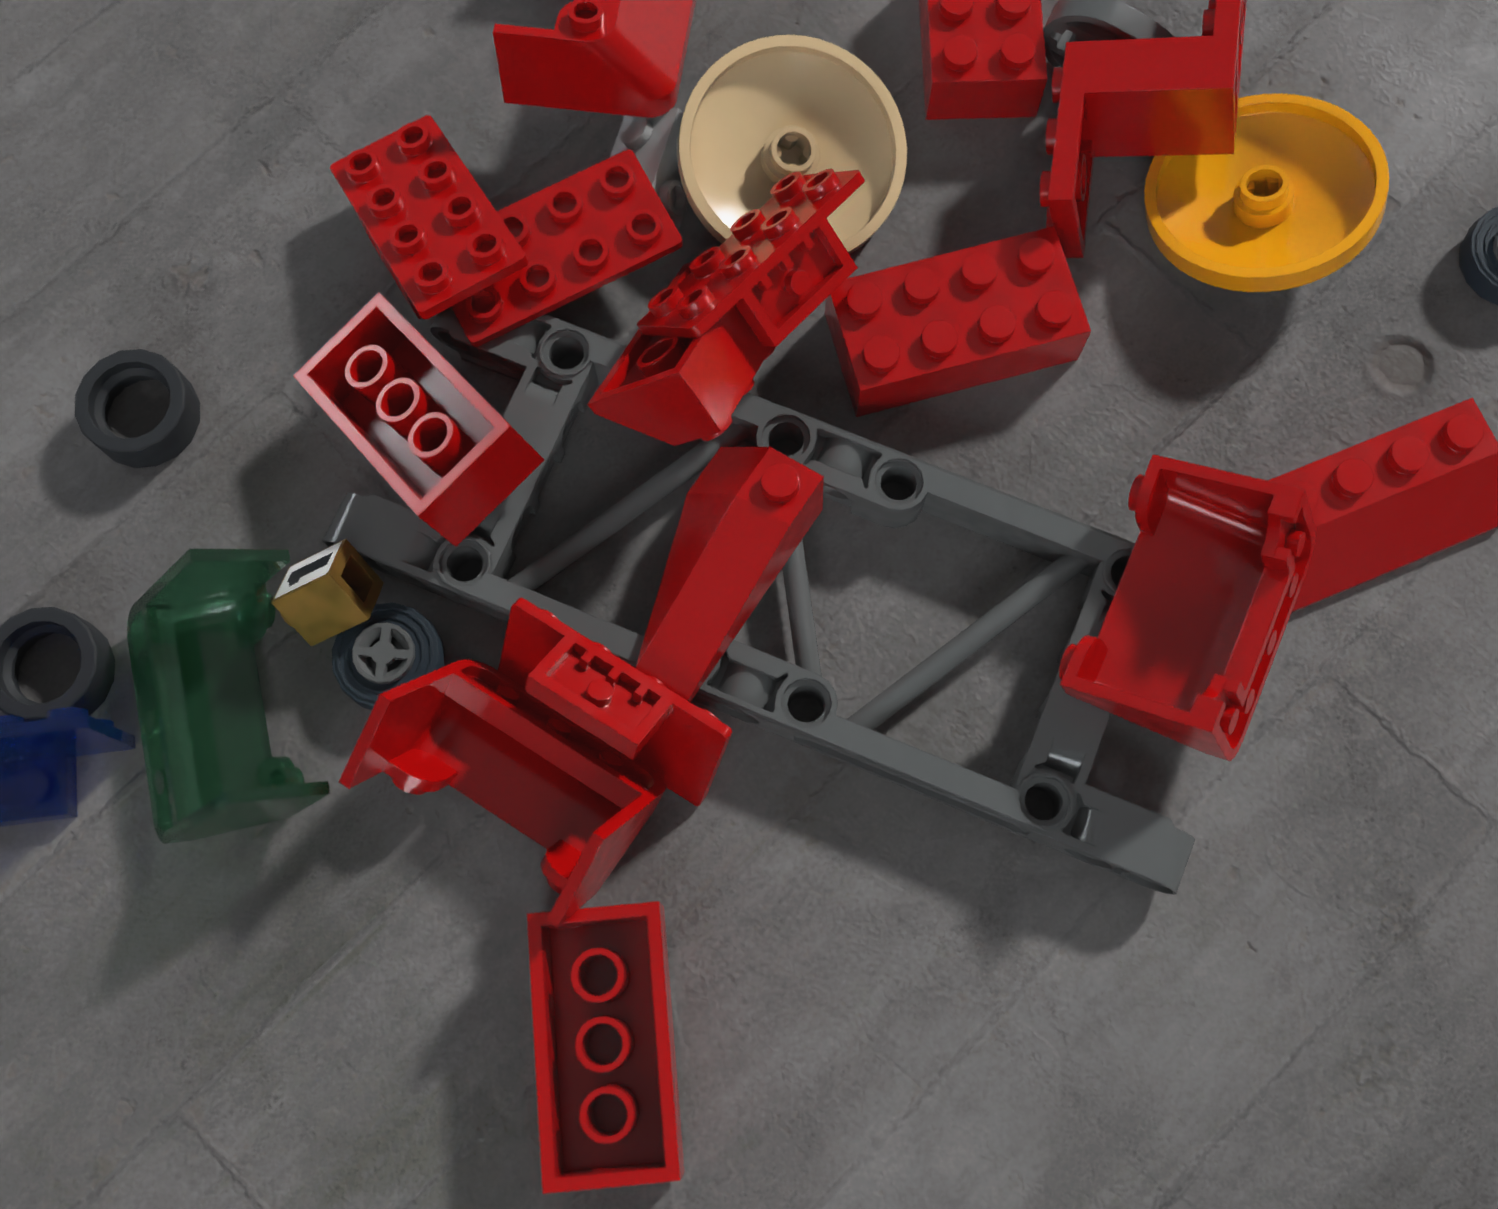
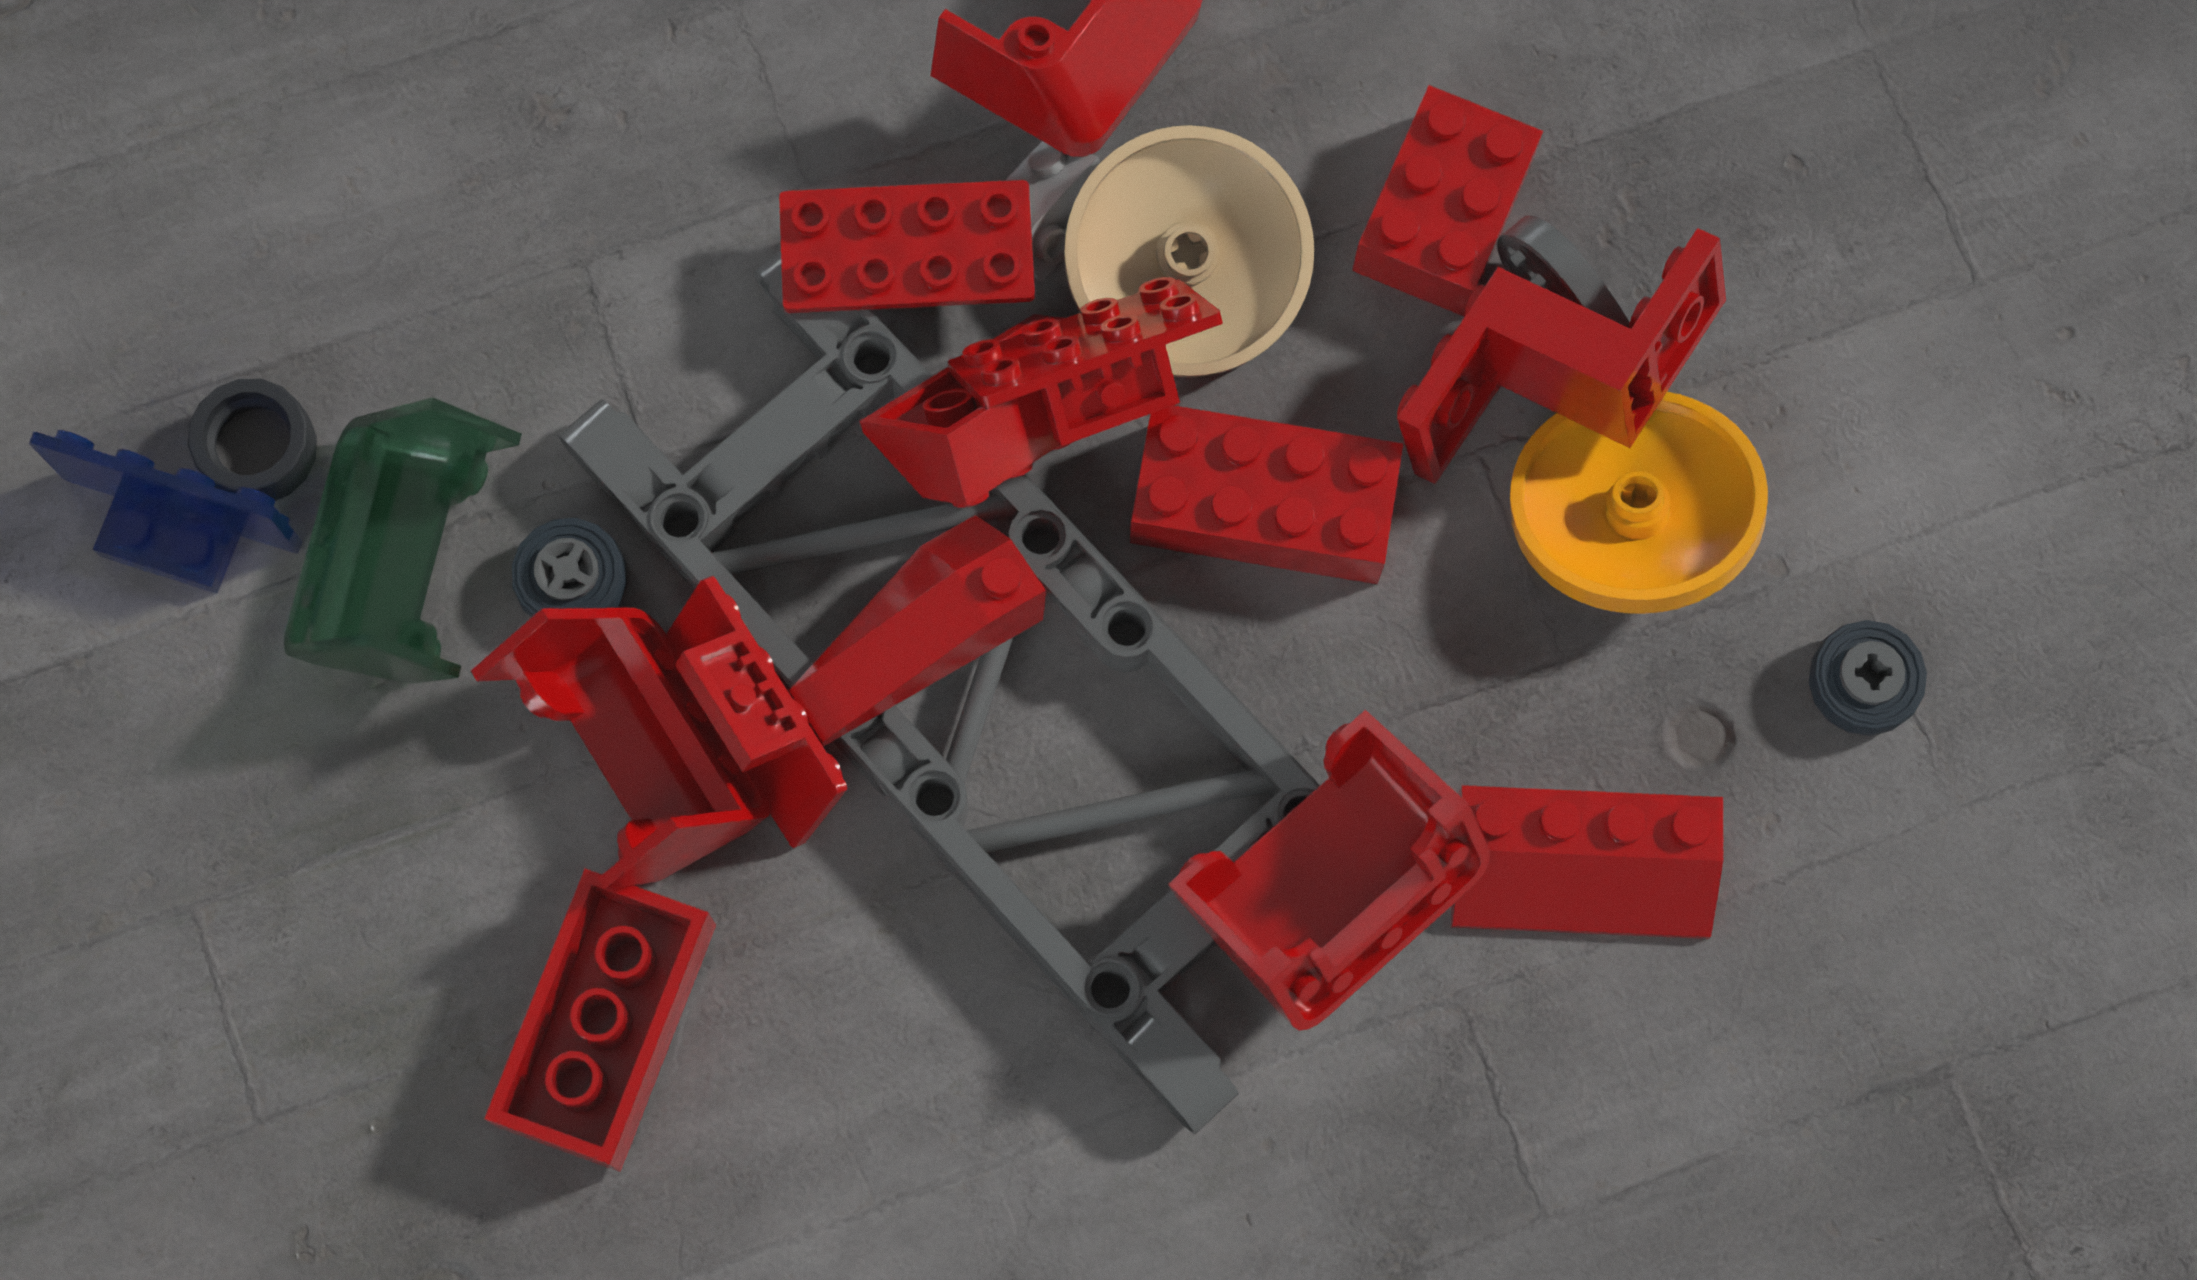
camera: 20 degrees right, 0 degrees up
(108, 379) = (423, 185): black tyre -> none
(328, 593) = (540, 488): pearl gold brick -> none
(417, 420) = (697, 361): red brick -> none
(427, 217) = (799, 163): red bracket -> none

